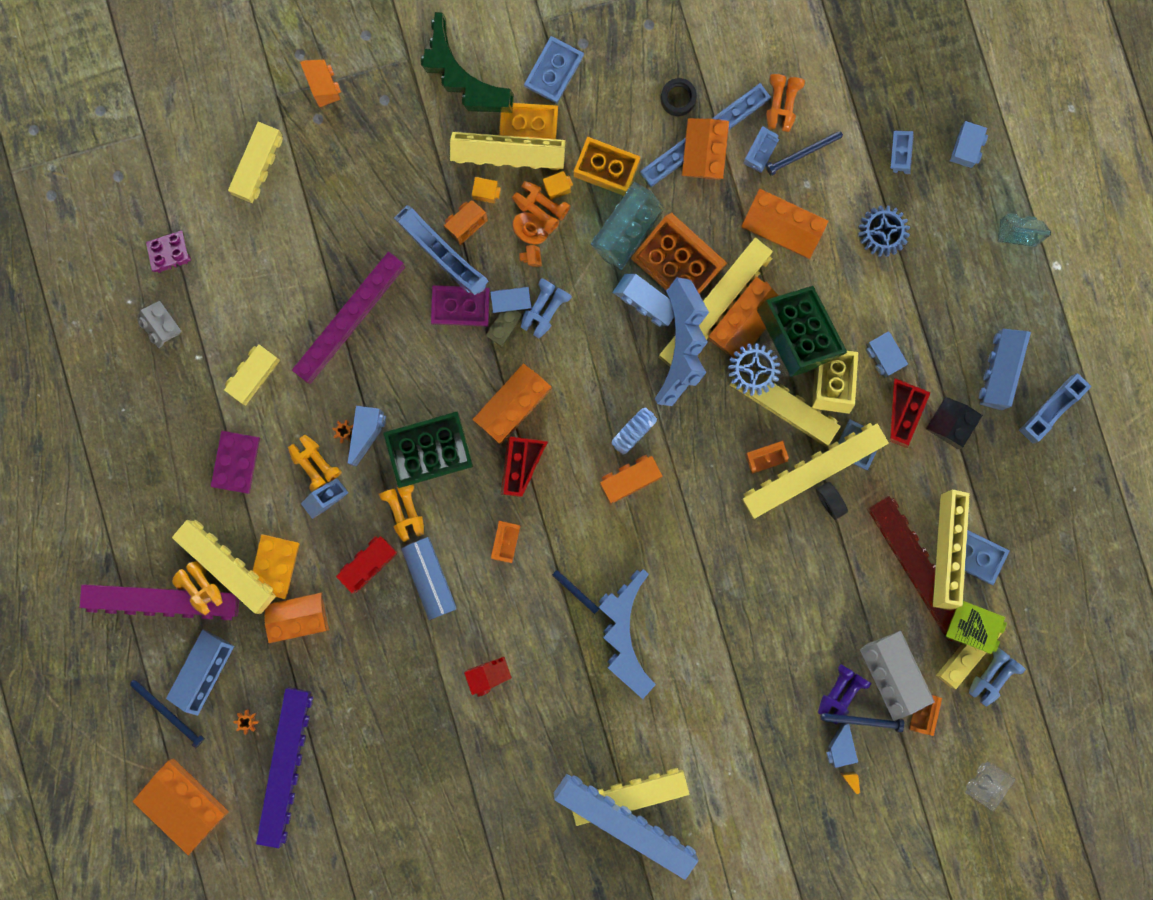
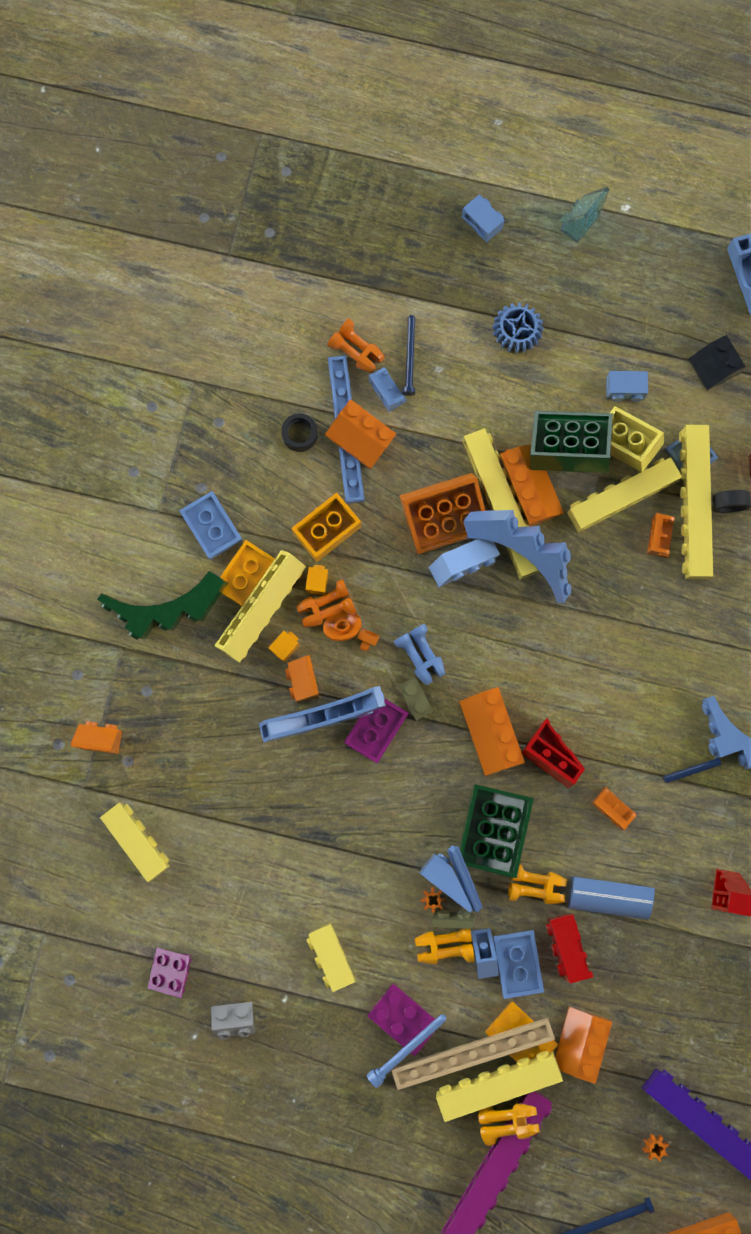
camera: 65 degrees left, 5 degrees down
(178, 465) = (377, 1076): none -> medium blue piece
(200, 672) = (585, 1167): medium blue brick -> none
(238, 531) = (473, 1053): none -> tan plate
(331, 531) = (518, 964): none -> medium blue plate
(339, 461) = (449, 919): none -> olive plate
(349, 318) = (330, 837): magenta brick -> none
(374, 446) = (464, 878): none -> medium blue axle
(510, 299) = (396, 679): medium blue hinge -> none
(627, 226) = (391, 539): clear light blue brick -> none
(630, 479) = (620, 664): orange brick -> none
(634, 431) = (578, 636): light blue gear -> none
(745, 369) = (589, 505): light blue gear -> none
(784, 223) = (464, 405): orange slope -> none
(902, 151) = (458, 273): medium blue hinge -> none
(907, 410) = (687, 396): red wedge -> none
(1004, 368) = (695, 295): medium blue slope -> none

